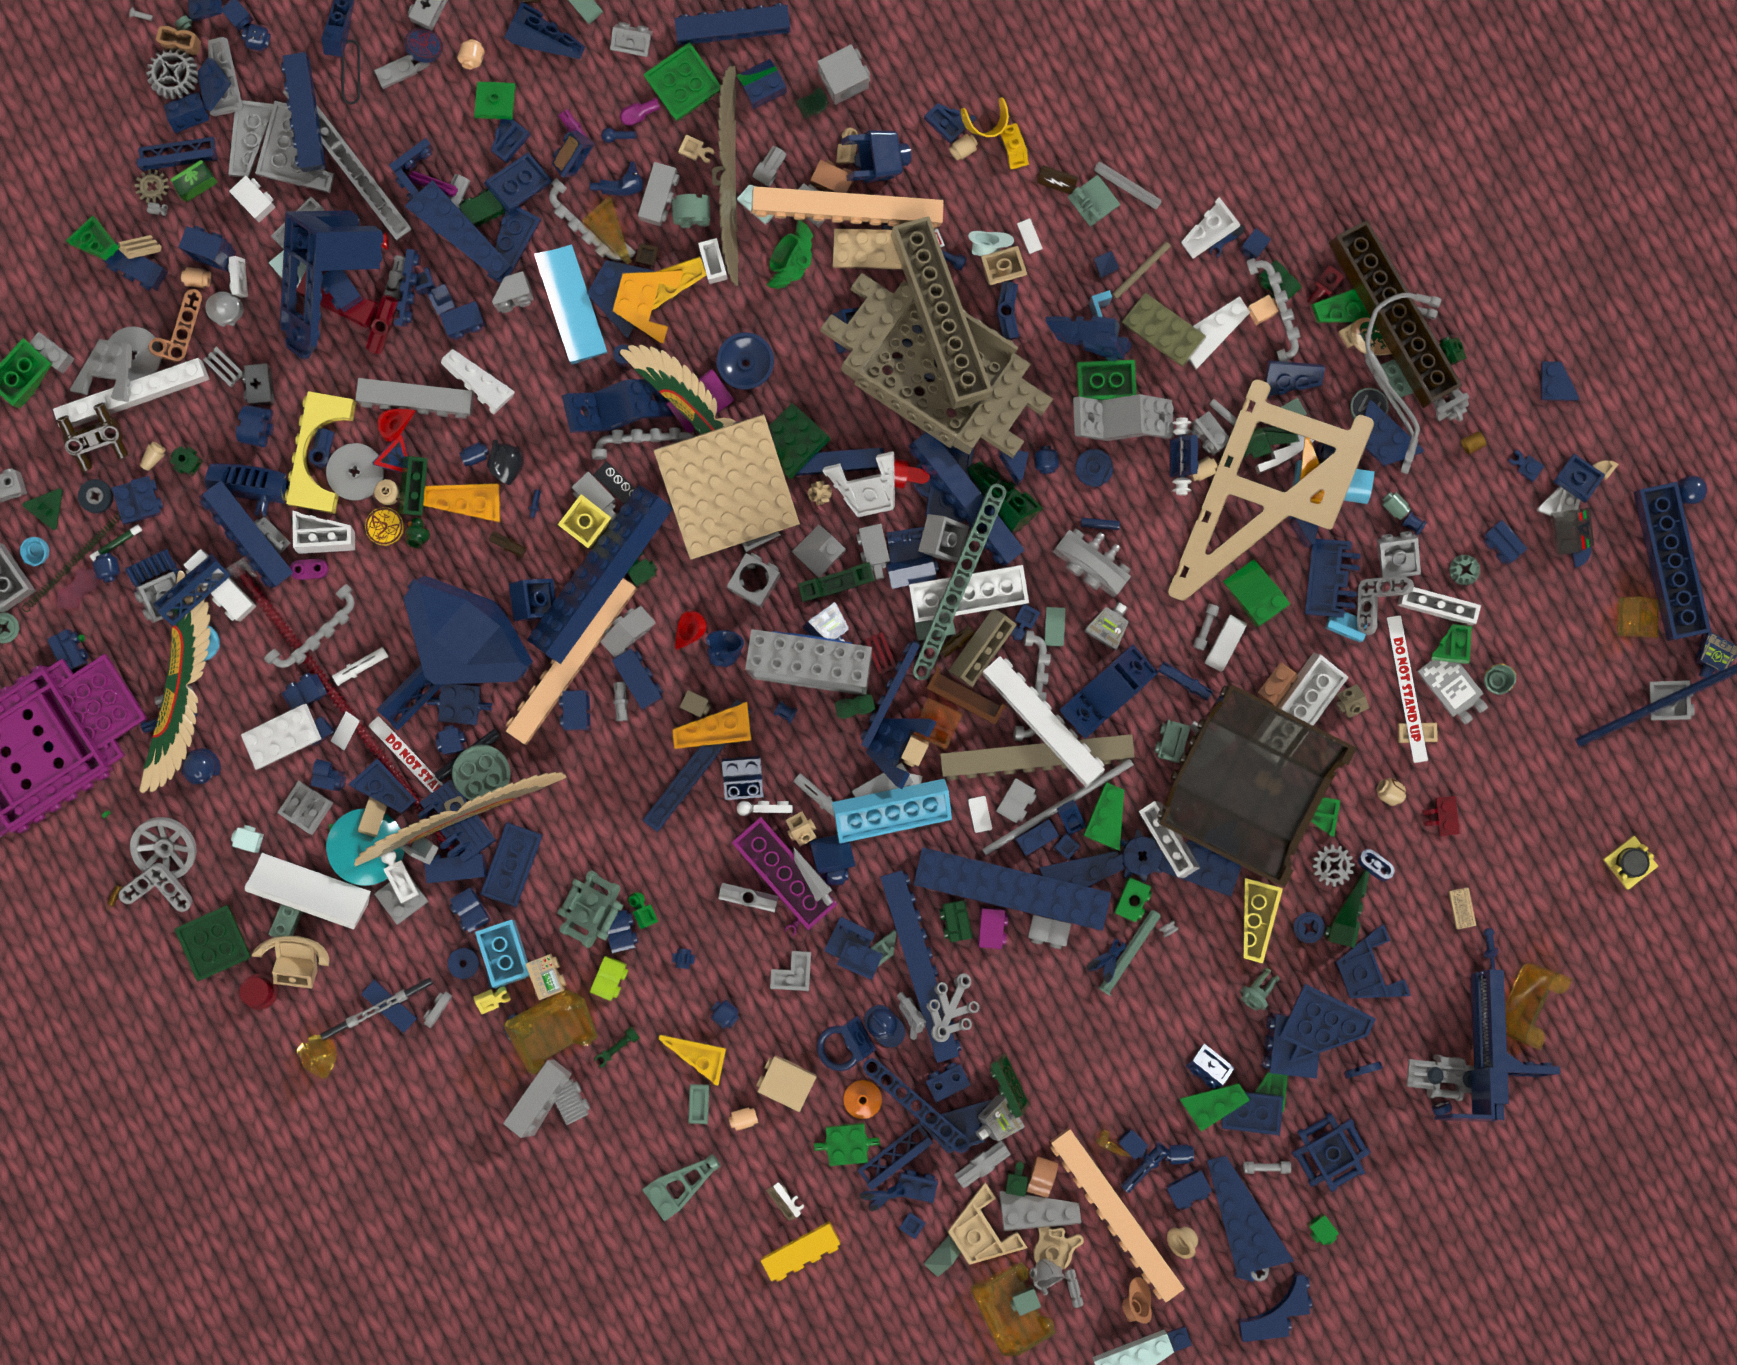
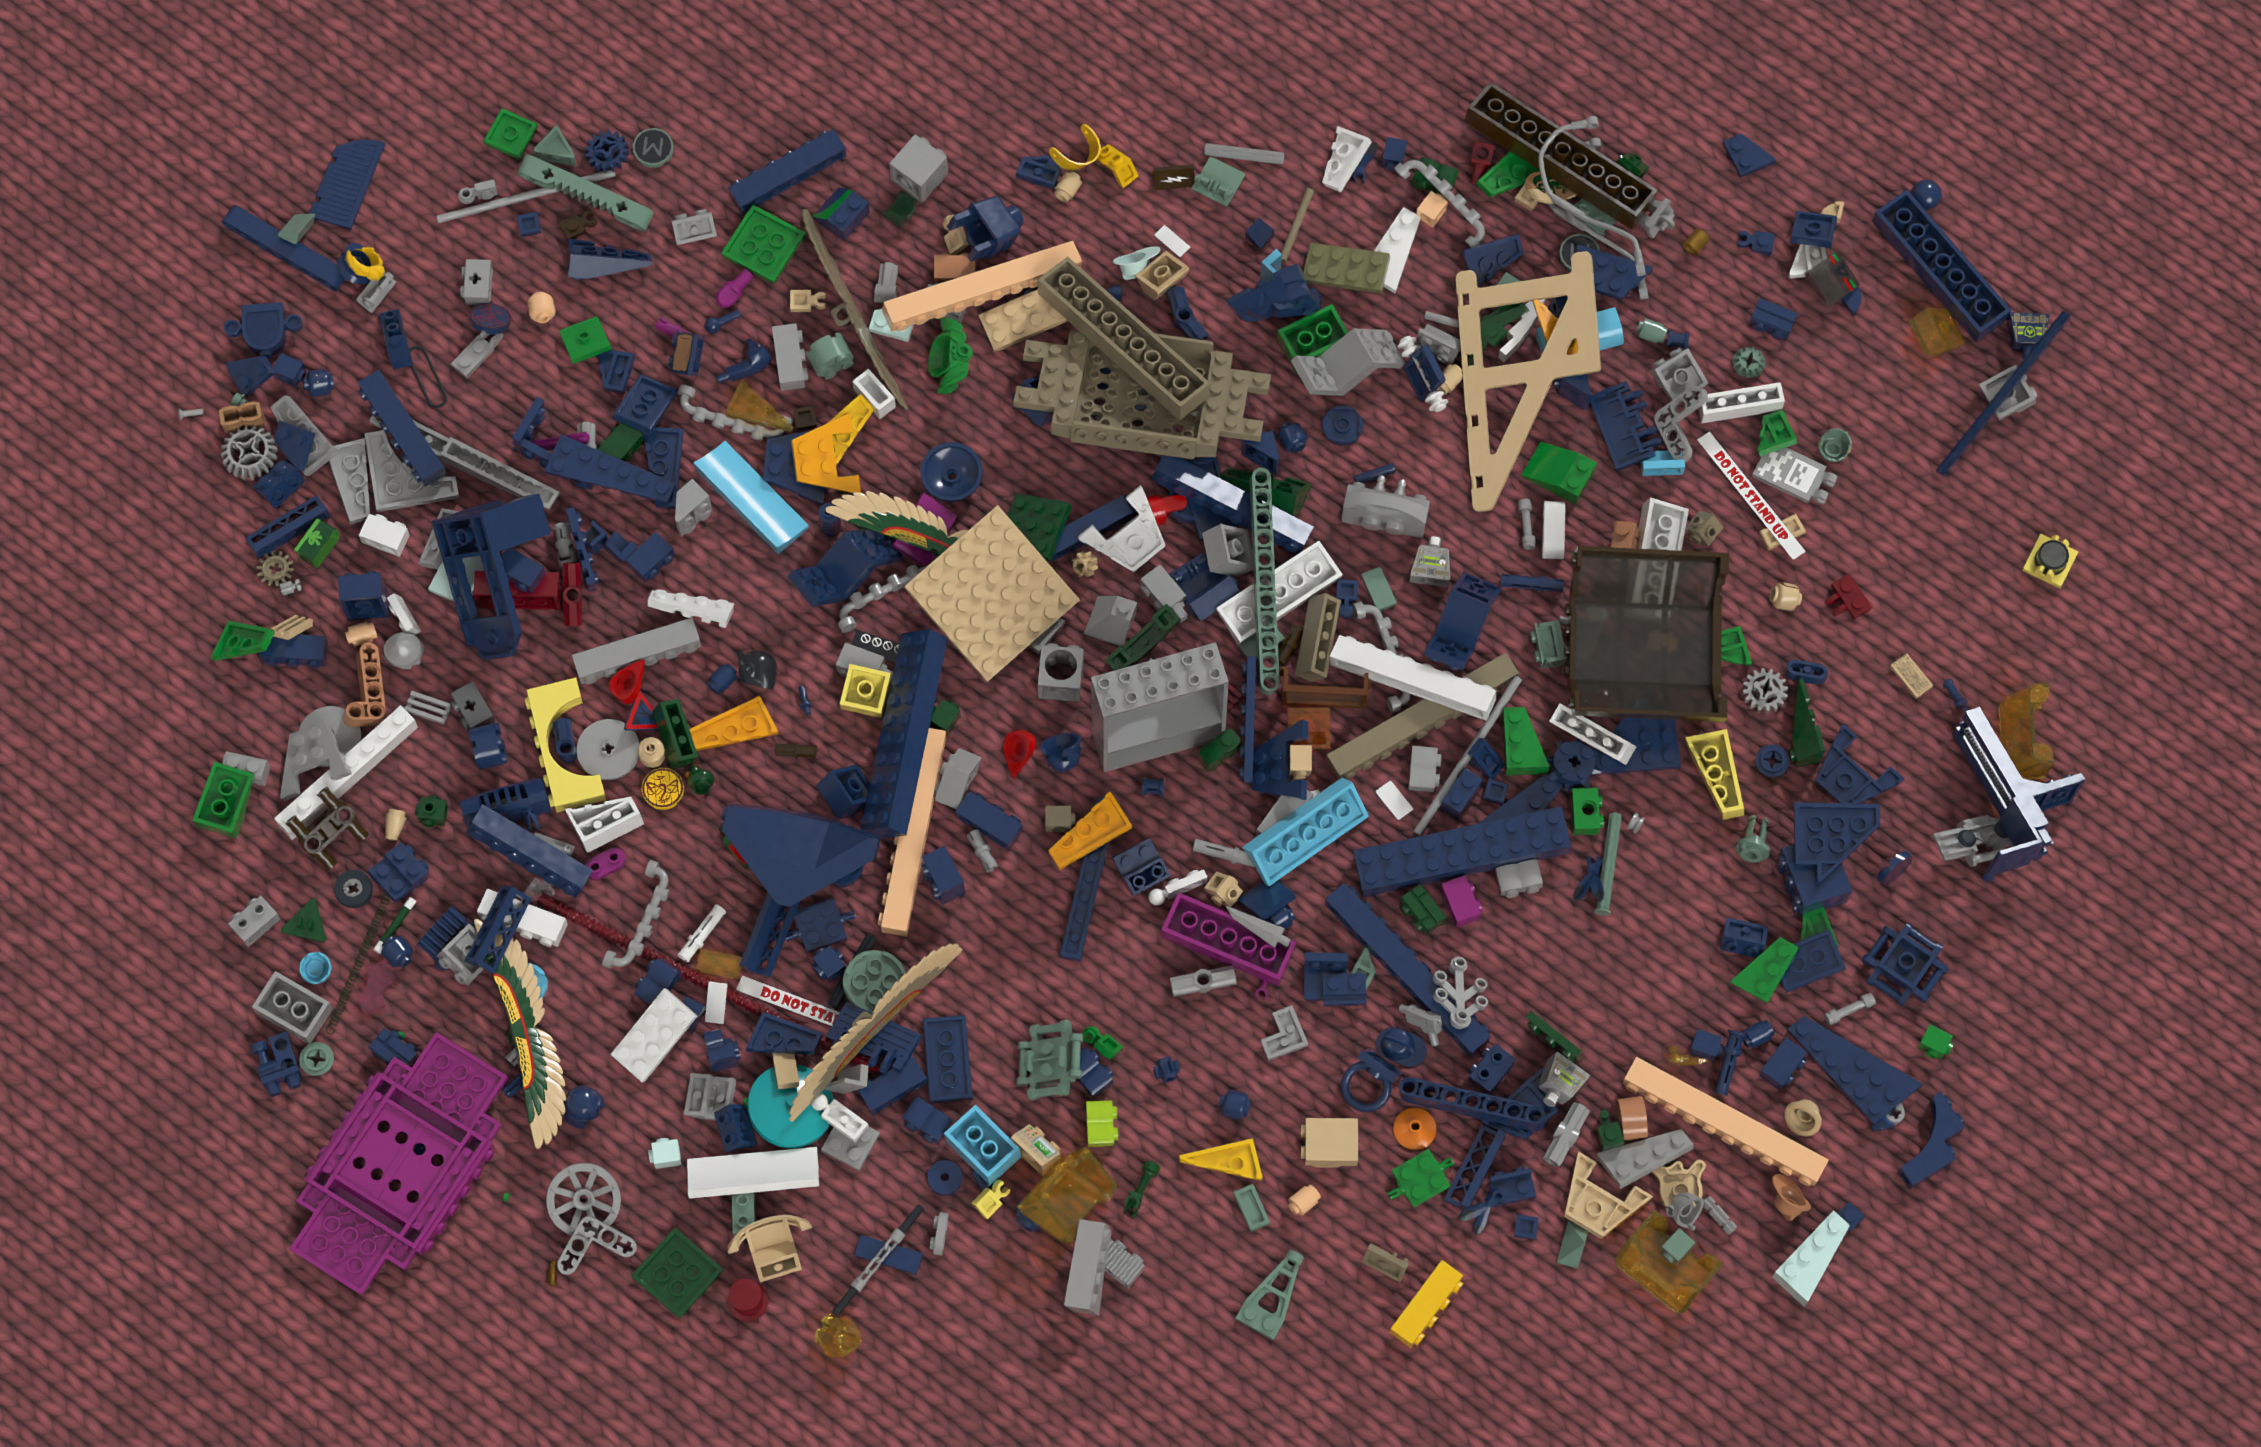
camera: 25 degrees left, 15 degrees down
(312, 844) = (735, 1127): none -> dark blue bracket
(363, 697) = (719, 964): none -> clear yellow plate

